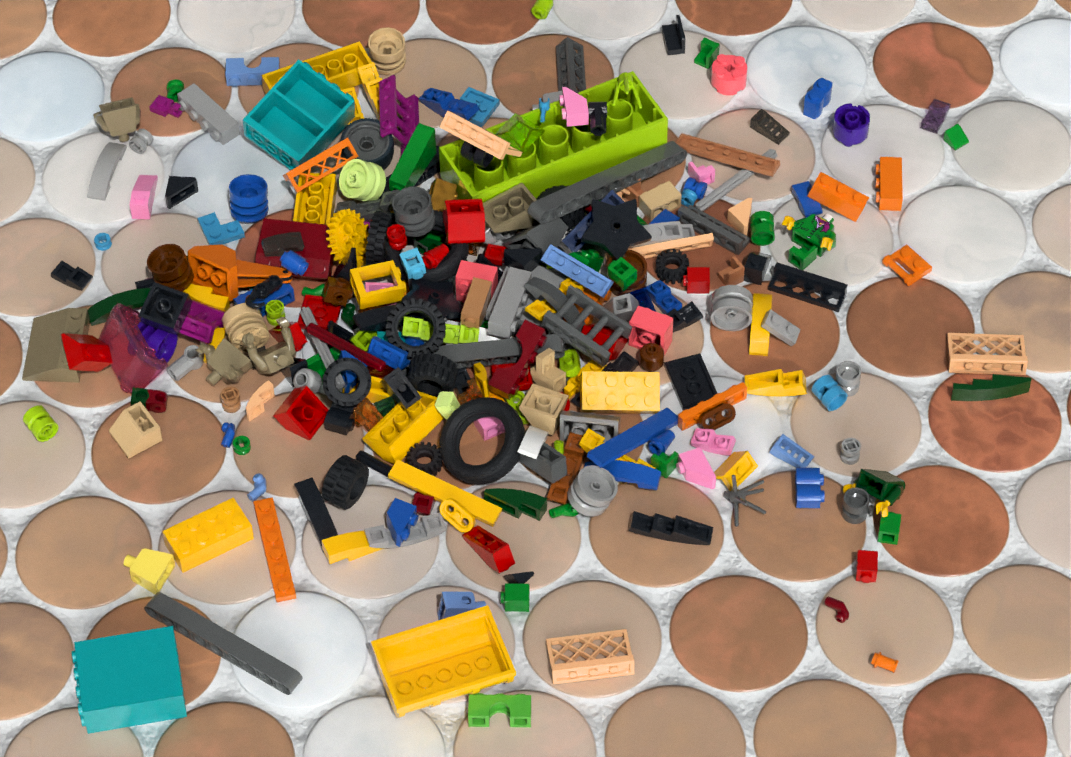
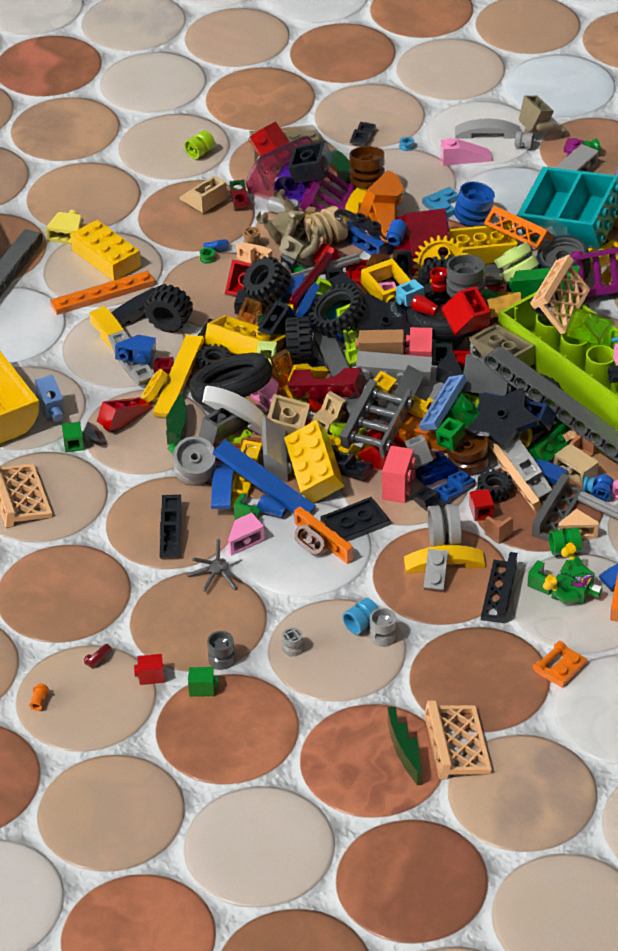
camera: 80 degrees right, 10 degrees down
(179, 189) = (474, 169): black slope -> none
(260, 487) = (164, 273): medium blue arm -> none
(274, 311) = (354, 245): lime wheel -> none
(278, 244) = (415, 221): clear smoke slope -> none
(651, 357) = (370, 483): reddish brown head -> none
(713, 443) = (283, 544): bright pink slope -> none
(738, 464) = (249, 562): yellow panel -> none
(756, 267) = (517, 541): black slope -> none
(776, 383) = (366, 577): yellow slope -> none
(790, 445) = (283, 587): medium blue slope -> none
(808, 487) = (239, 615): blue brick -> none
(881, 486) = (243, 663): dark green torso -> none

